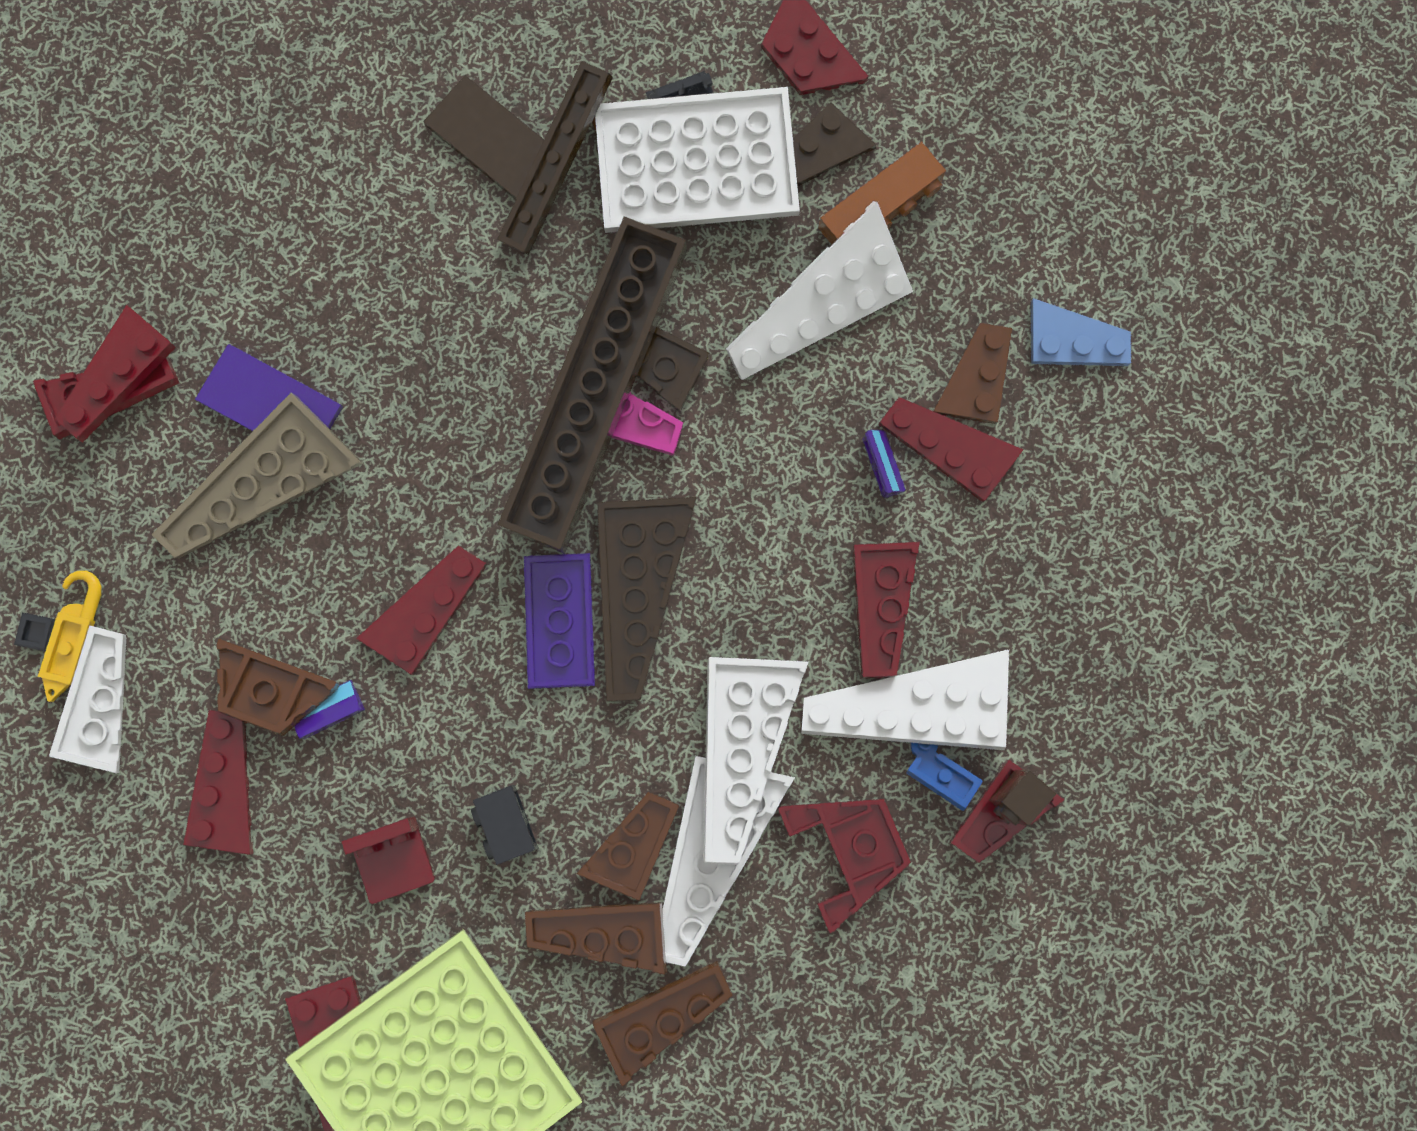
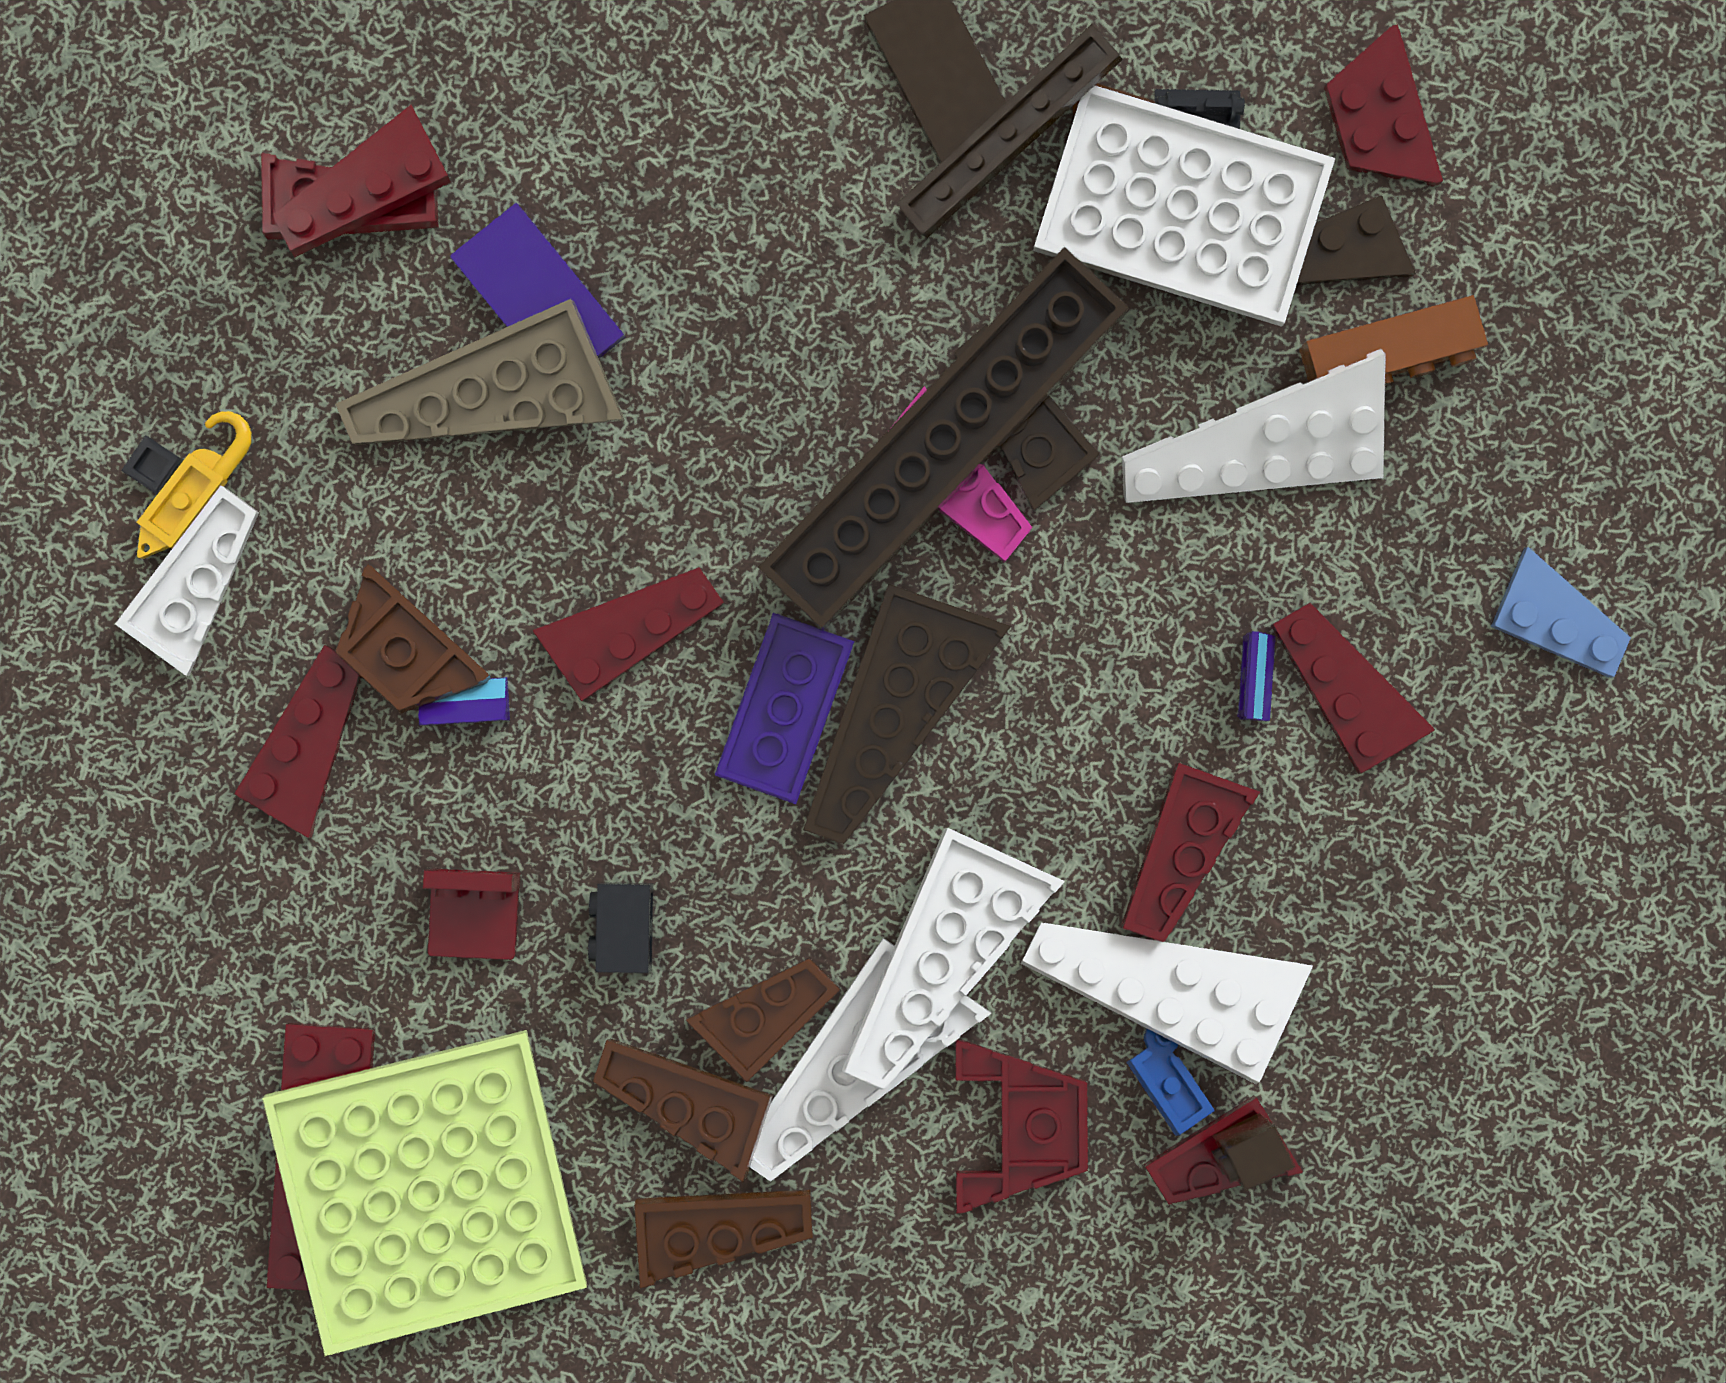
camera: 20 degrees right, 5 degrees up
(979, 377) = (1418, 619): reddish brown wing -> none

